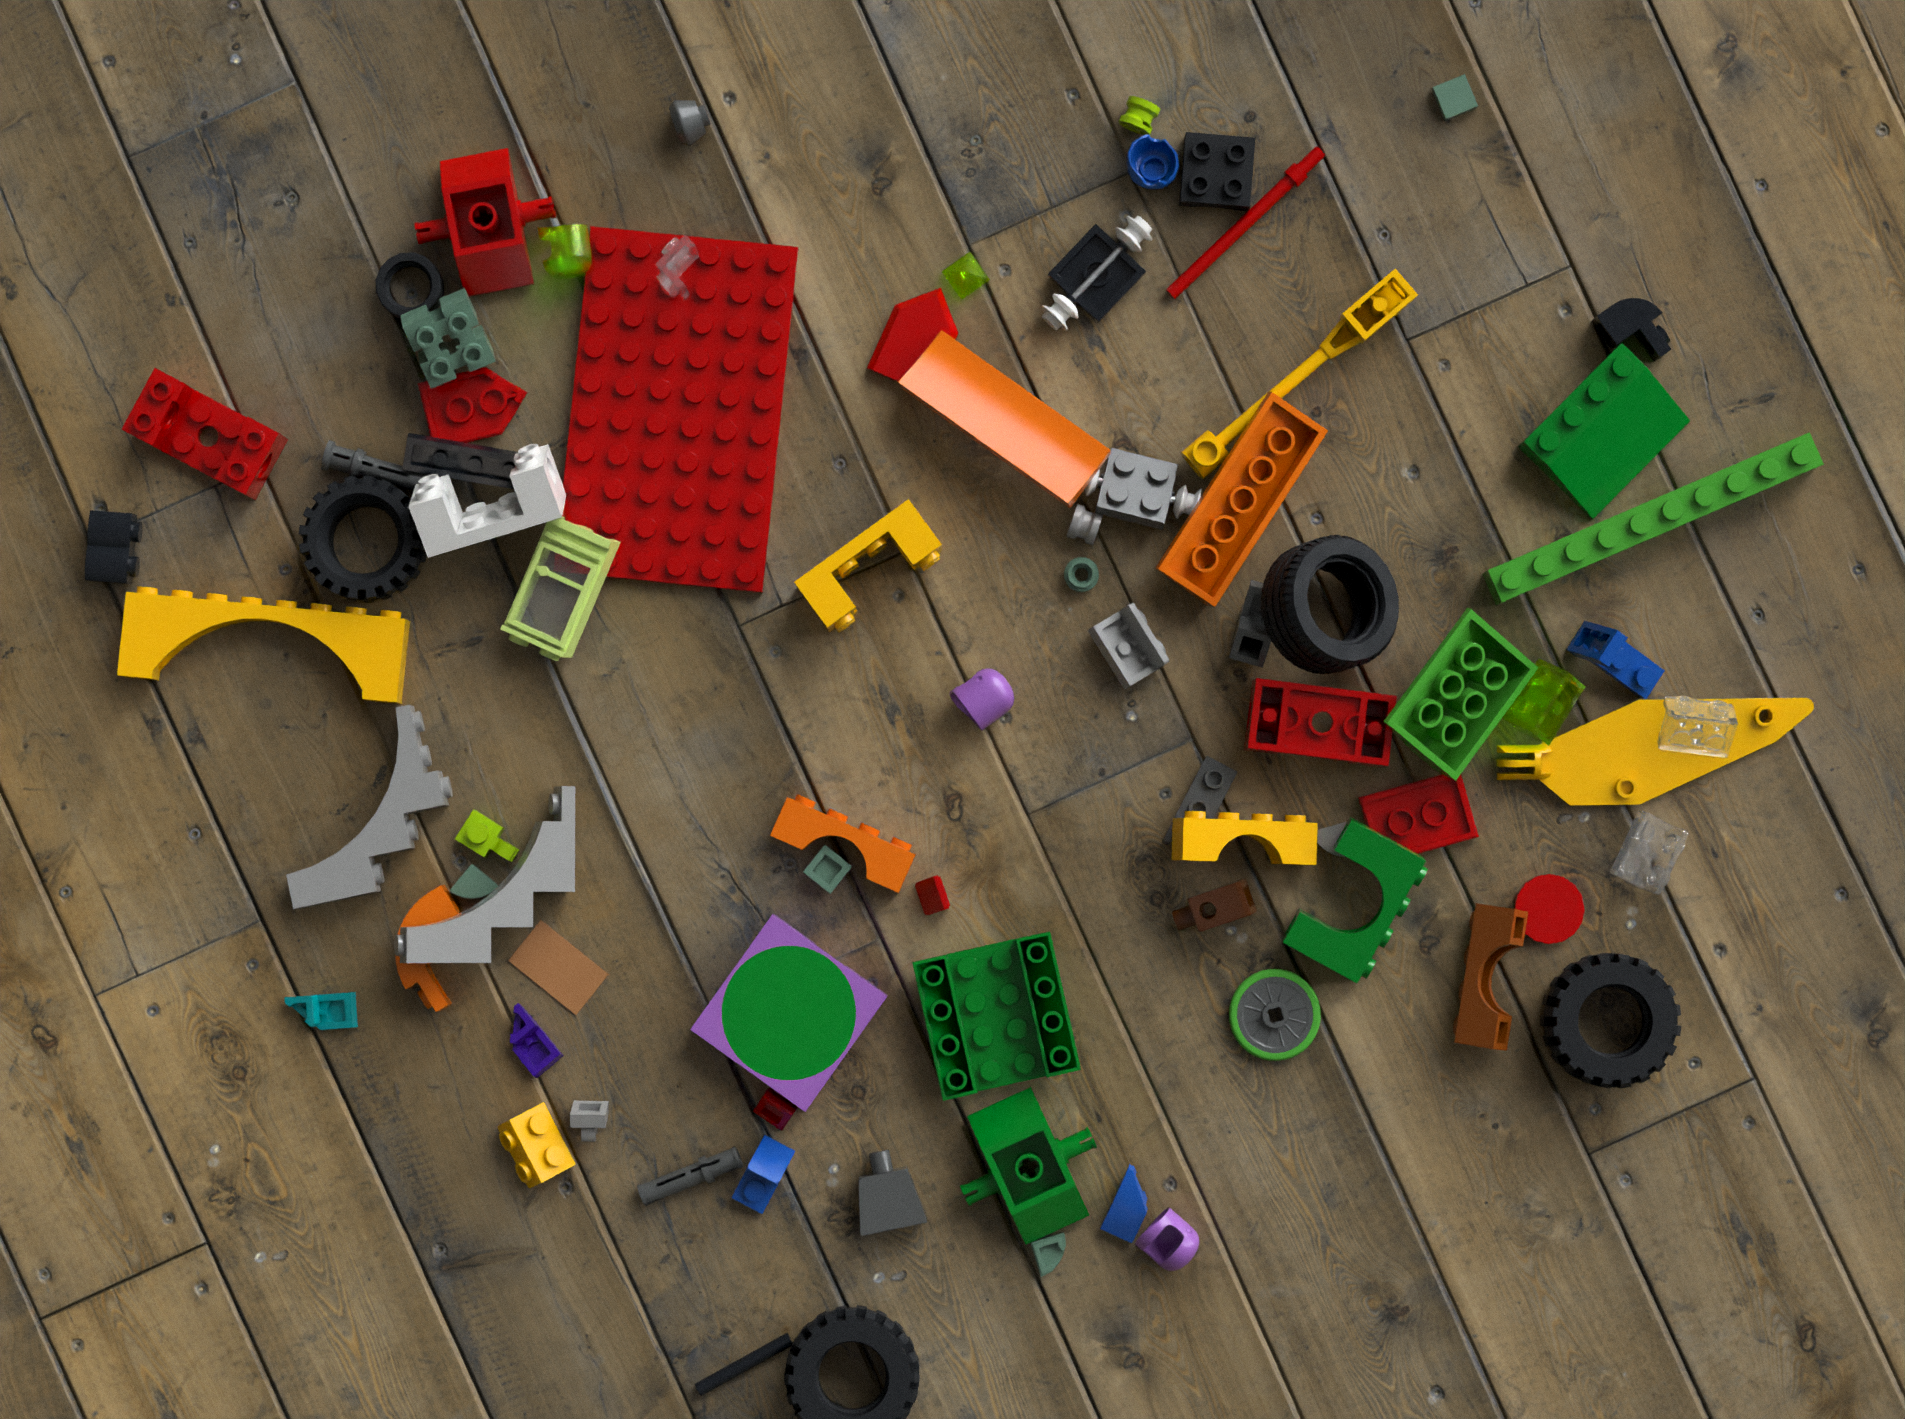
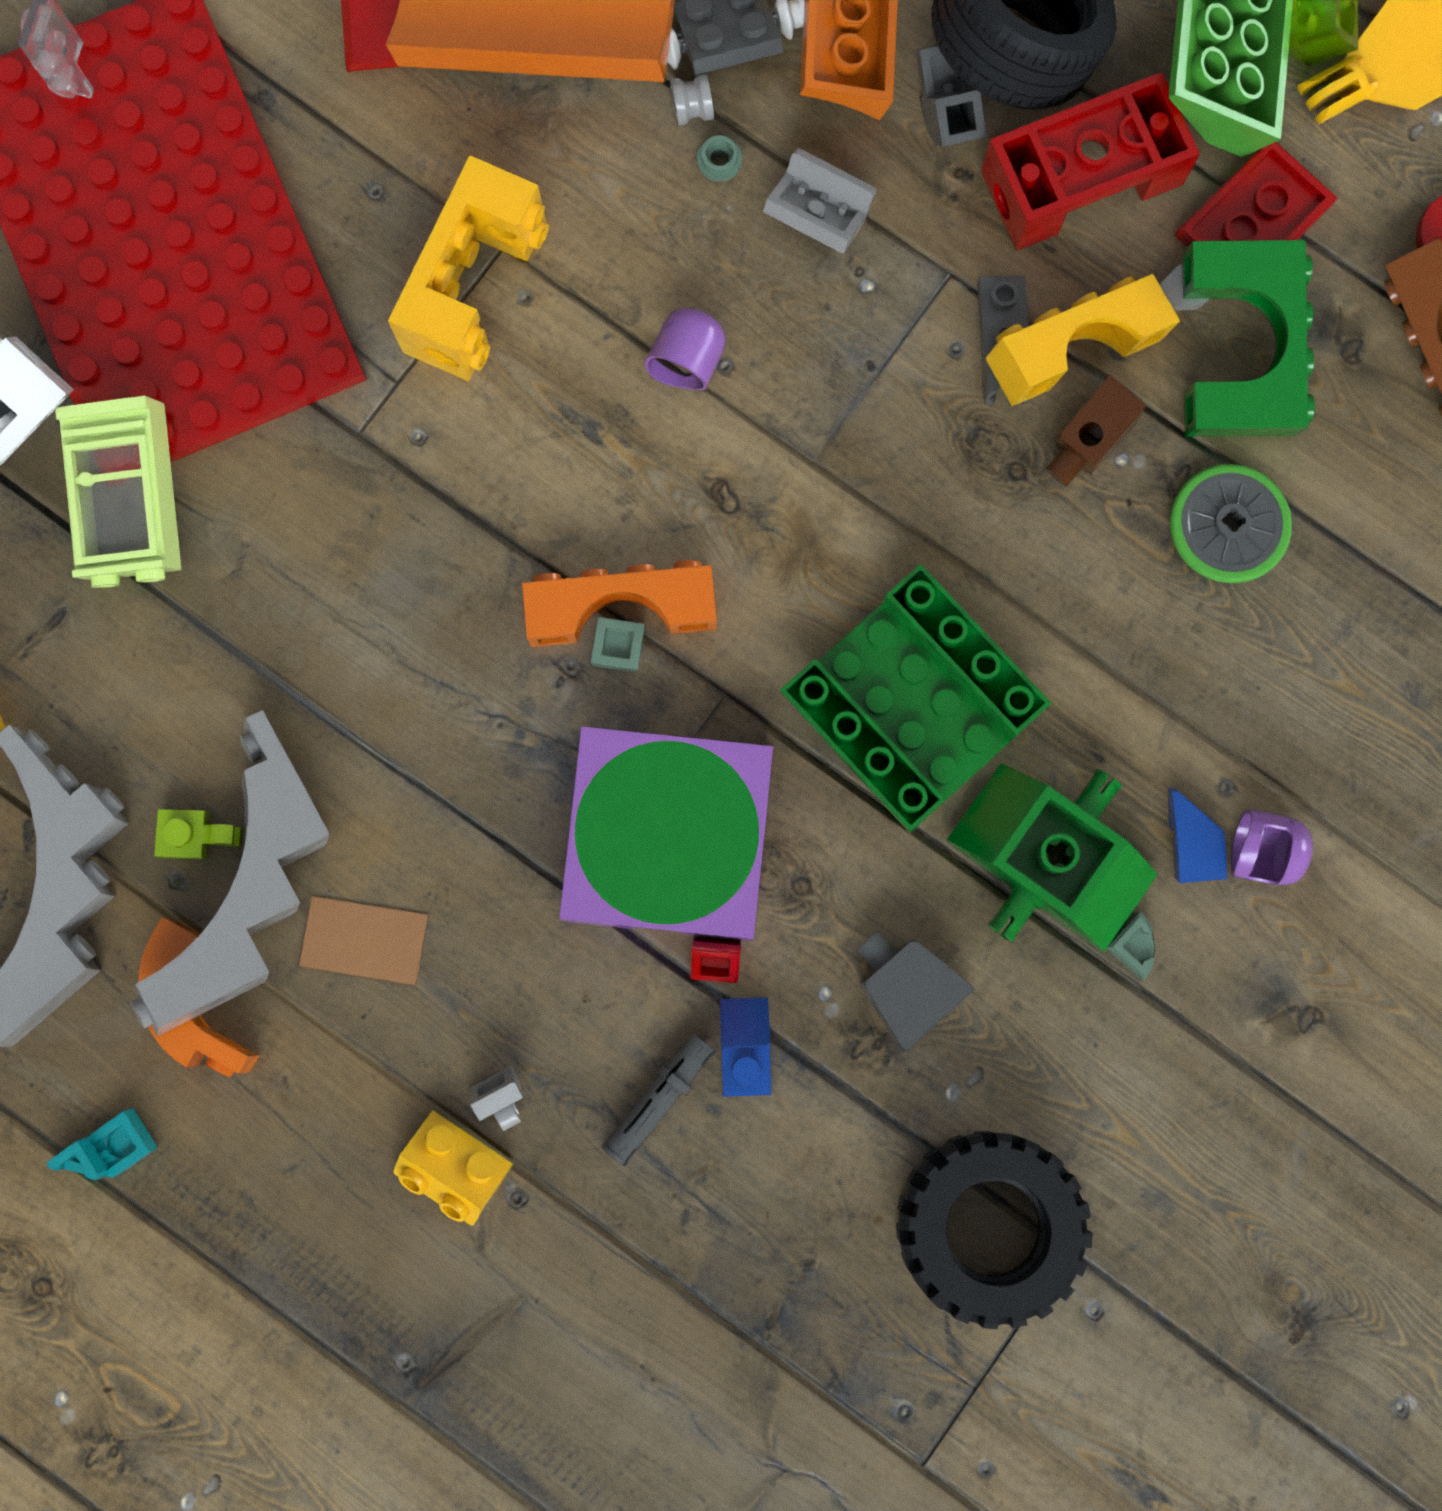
camera: 30 degrees left, 5 degrees down
(473, 884) = (204, 898): sand green tile -> none
(532, 1043) = (381, 1048): dark purple slope -> none
(744, 1364) = (852, 1291): black bar -> none
(932, 895) = (758, 606): red slope -> none

